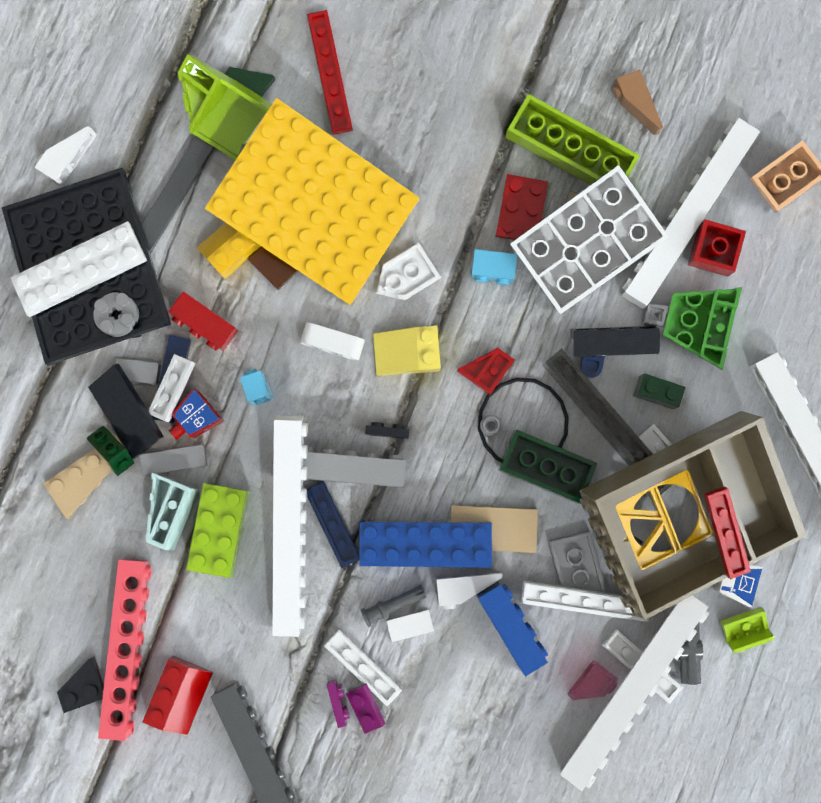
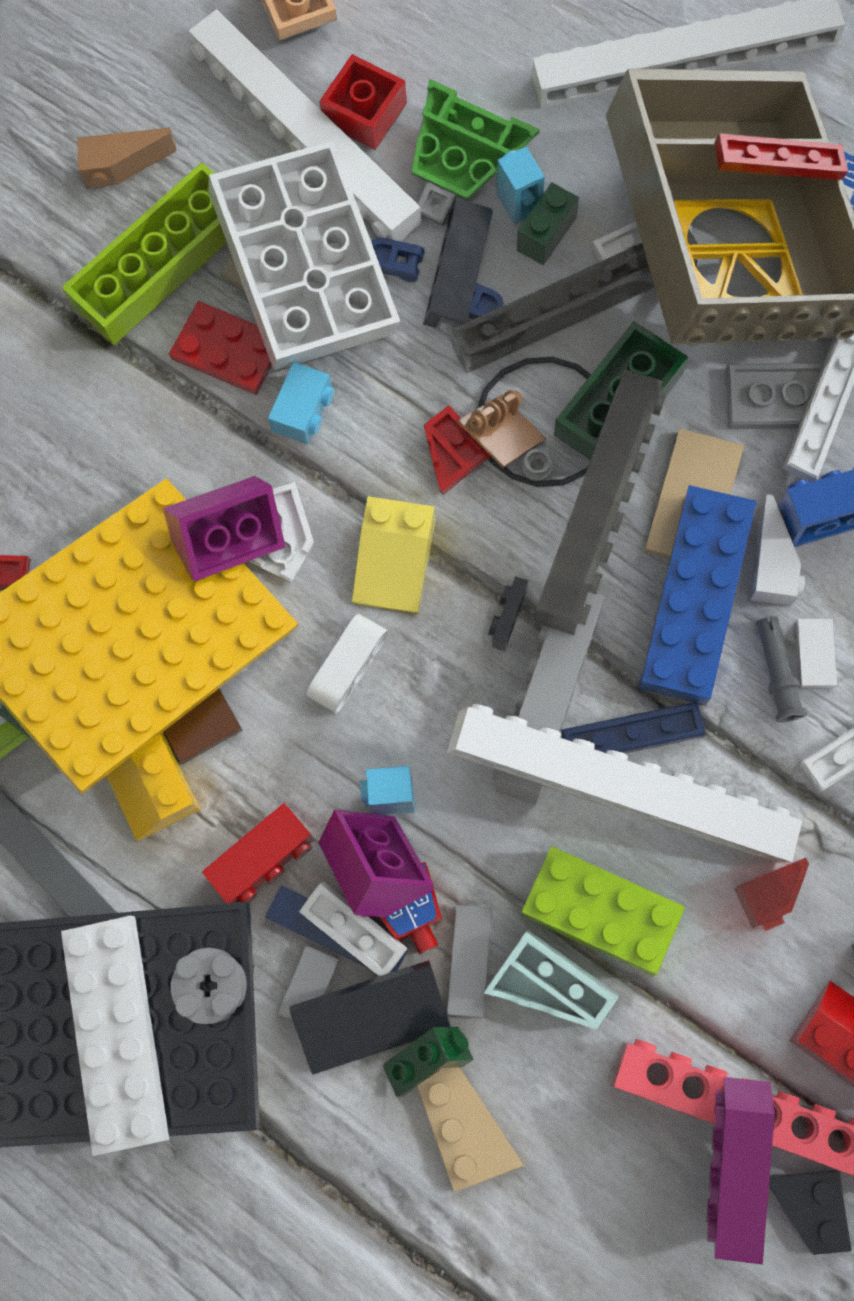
camera: 65 degrees left, 10 degrees down
(86, 639) = (740, 1170): none -> magenta brick
(210, 390) = (373, 862): none -> magenta slope
(253, 628) = (772, 894): none -> clear red slope
(394, 243) = (225, 527): none -> magenta slope
(462, 469) = (598, 503): none -> clear smoke brick
(507, 397) = (503, 428): none -> medium nougat hinge
(610, 291) = (387, 256): none -> dark blue plate
(680, 366) = (519, 183): none -> medium azure brick

